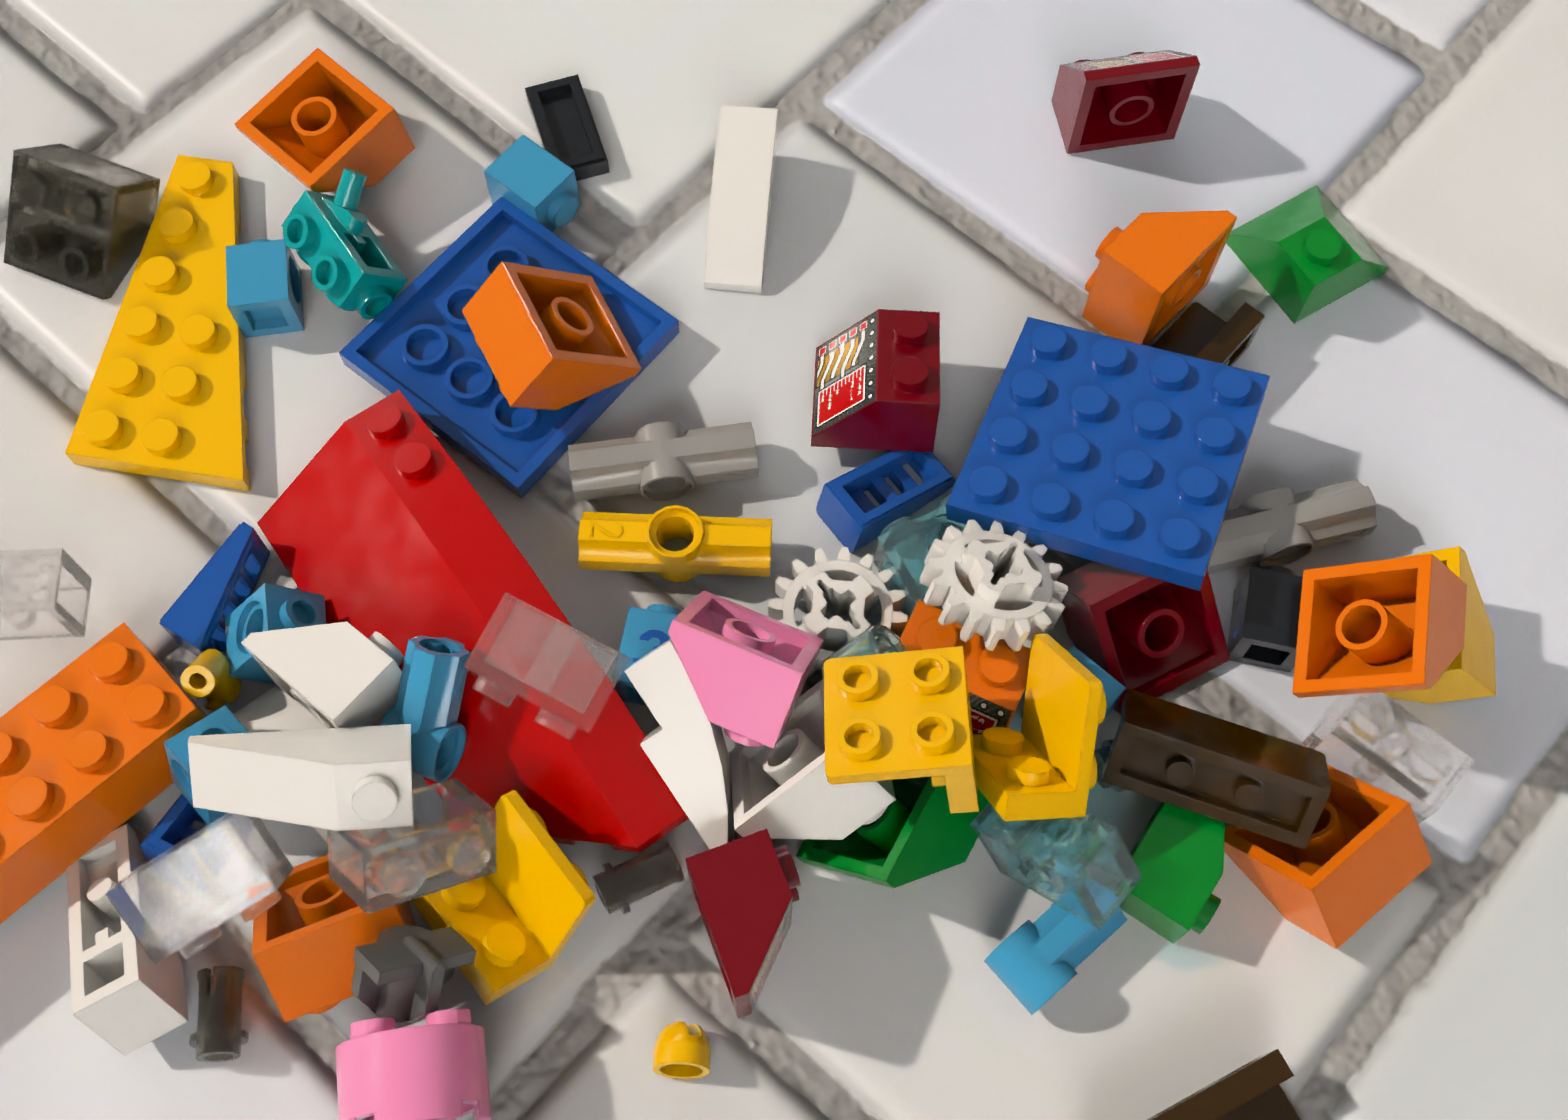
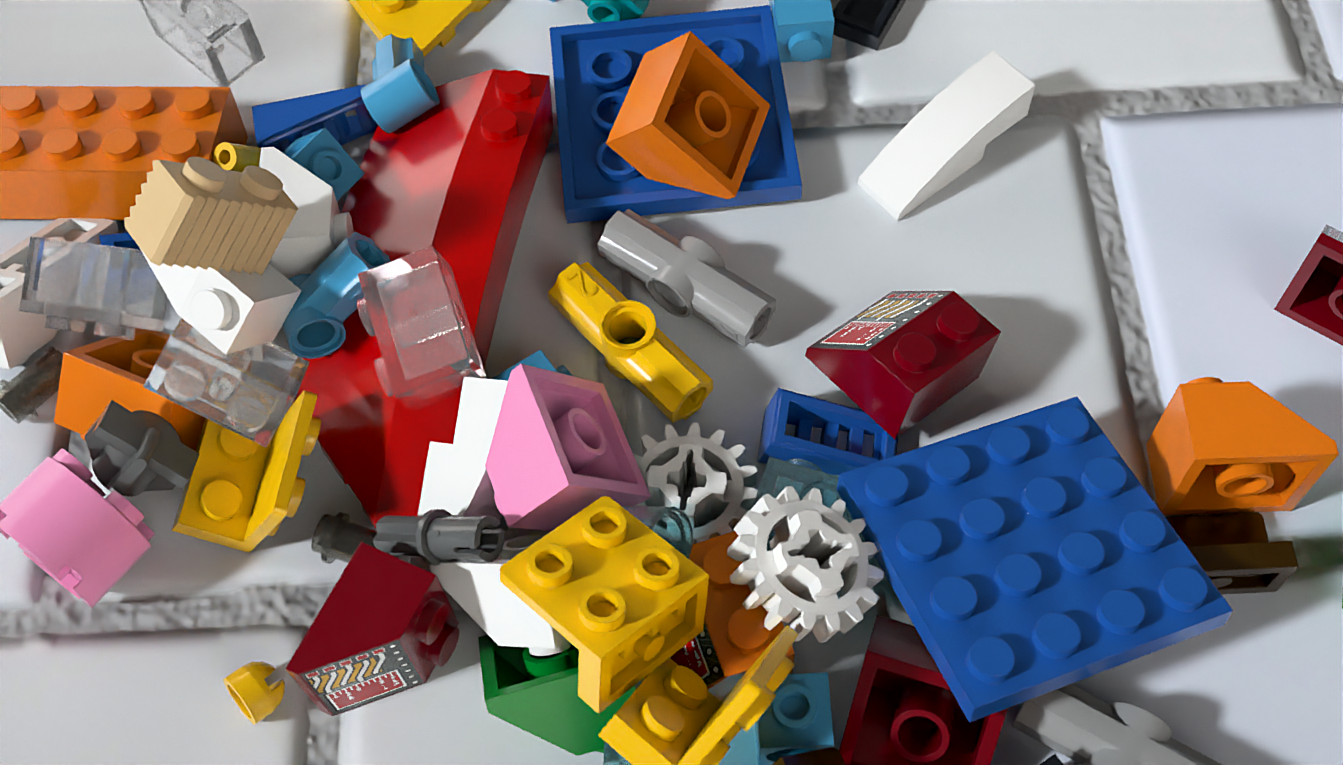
camera: 50 degrees right, 5 degrees down
(272, 498) = (399, 84): none -> dark azure piece
(311, 724) = (210, 216): none -> tan brick
(727, 804) = (440, 537): none -> dark grey axle

